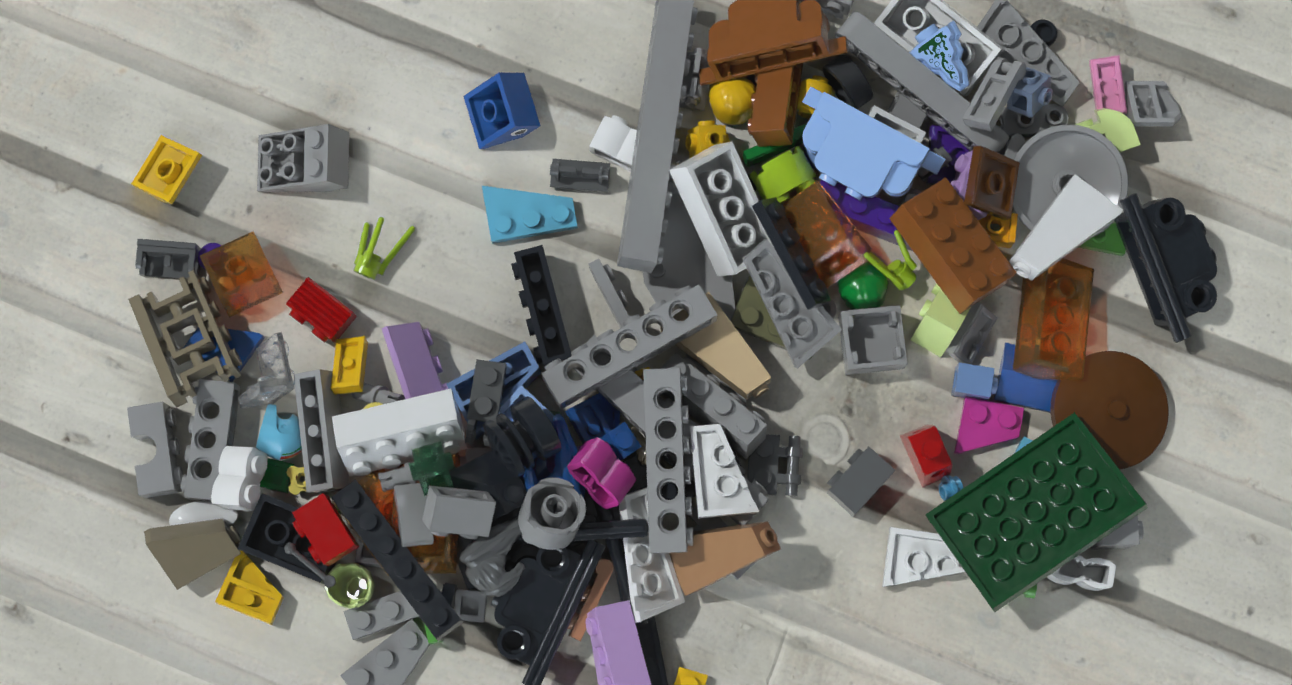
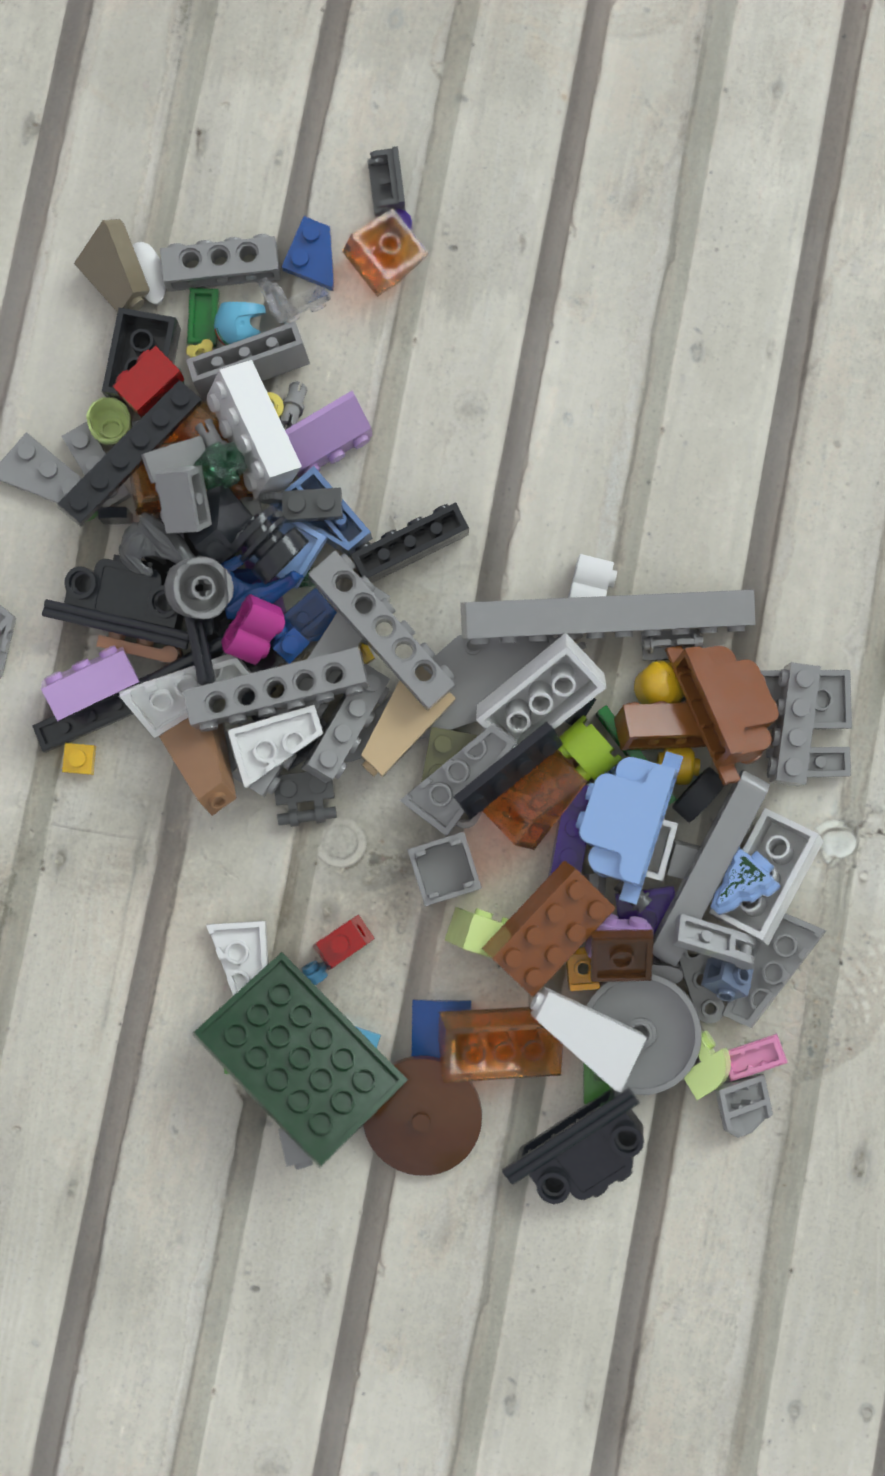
camera: 75 degrees right, 5 degrees up
(161, 474) = (225, 210): light grey arch -> none
(164, 347) = (300, 194): dark tan fence -> none
(166, 170) = (473, 159): yellow slope -> none
(239, 478) = (186, 294): white brick -> none
(249, 591) = (86, 332): yellow wing -> none
(304, 160) = (510, 286): light grey slope -> none
(320, 310) = (366, 335): red brick -> none
(329, 581) = (104, 397): dark grey hinge -> none
(349, 365) = (317, 373): yellow plate -> none
(366, 261) = (422, 369): lime plant -> none
(470, 605) = (110, 536): light grey plate -> none
(501, 109) = (600, 463): blue slope -> none
(526, 214) = (502, 509): medium azure wing -> none
(579, 175) = (552, 552): dark grey hinge -> none
(615, 299) = (434, 610): light grey plate -> none
(705, 136) = (612, 665): yellow brick -> none
(860, 480) = (303, 882): dark grey brick -> none
(863, 287) = (495, 852): green hair -> none
(898, 272) = (517, 882): lime plant -> none
(971, 334) = (470, 966): light grey plate -> none
(974, 381) = (423, 977): medium blue brick -> none
(986, 424) = (386, 997): dark pink wing -> none
(1046, 31) = (798, 983): black plate -> none
(1089, 574) = (256, 1124): white brick -> none

